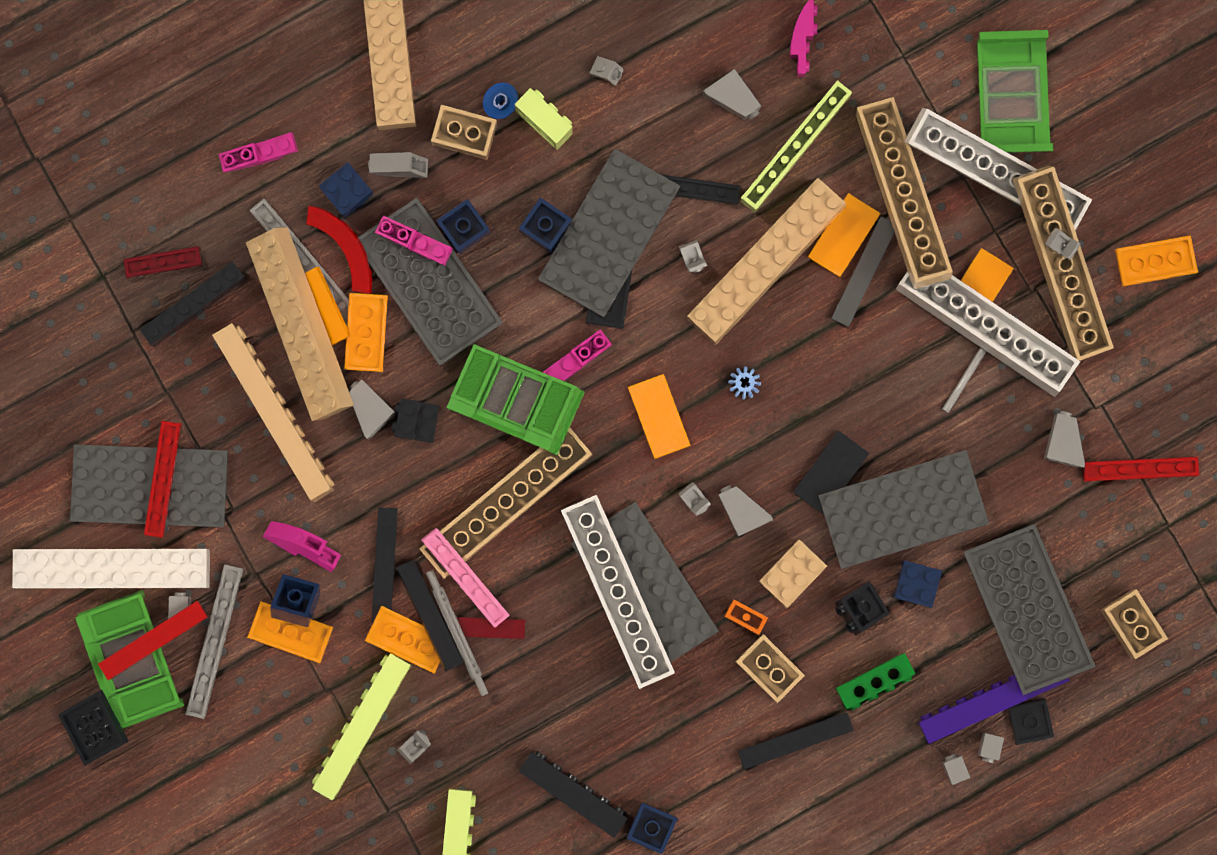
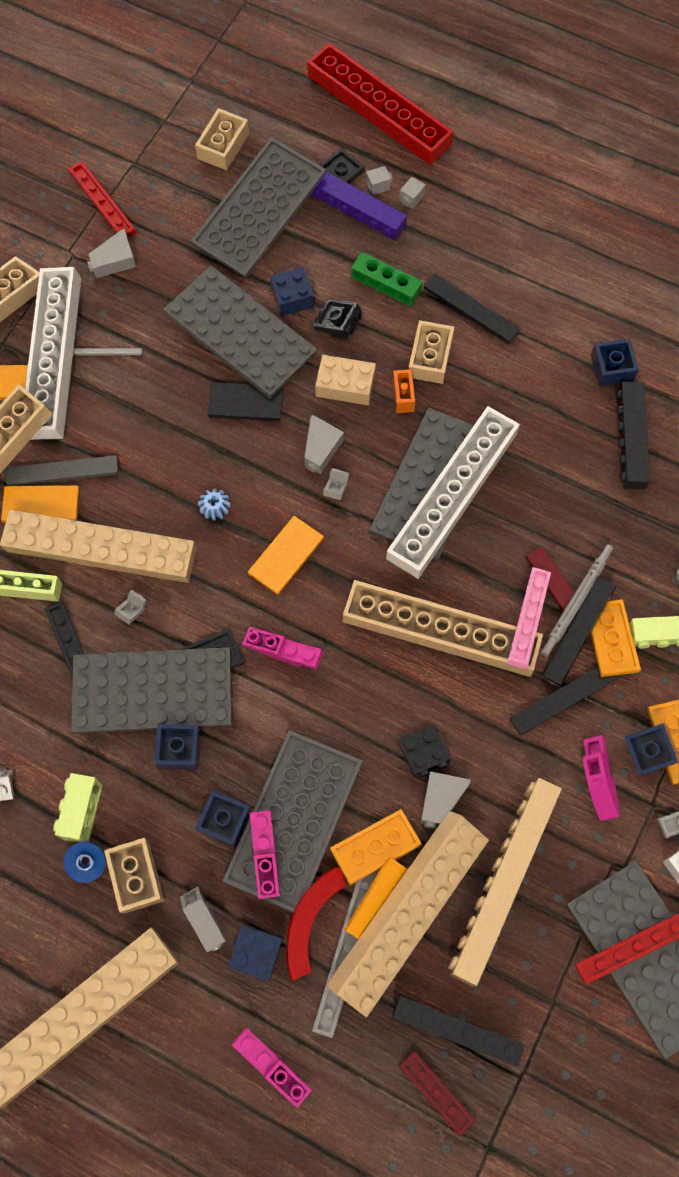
camera: 120 degrees left, 15 degrees down
(515, 399) = (351, 674): bright green piece -> none
(1080, 805) = (380, 103): none -> red brick

